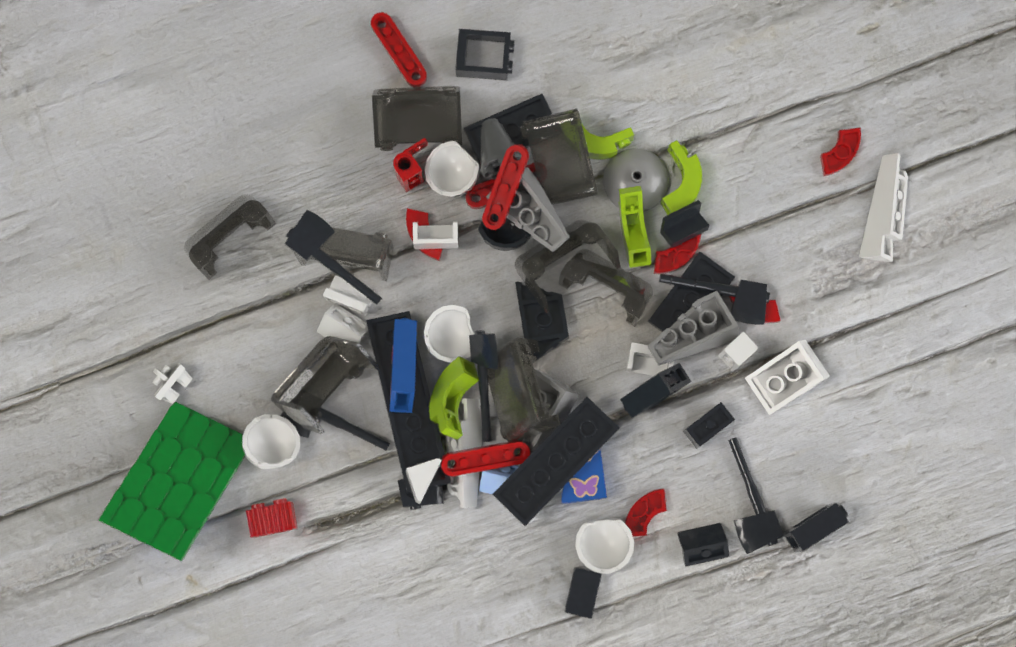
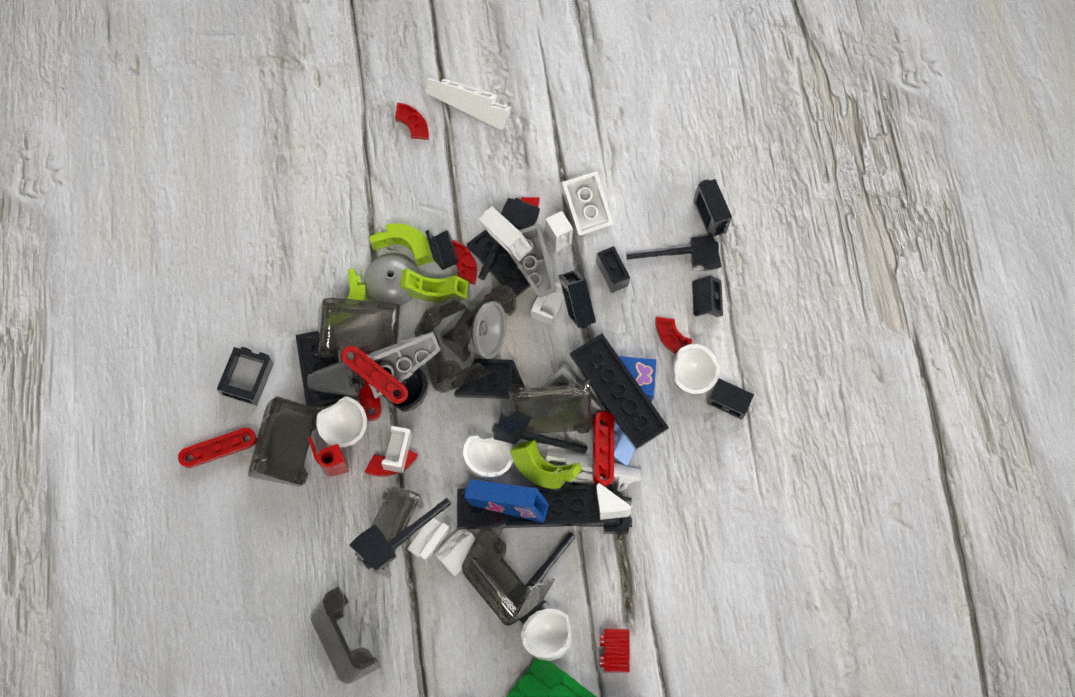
camera: 80 degrees left, 10 degrees down
(594, 300) = (489, 329): none -> light grey dish
(712, 289) = (505, 233): none -> white window

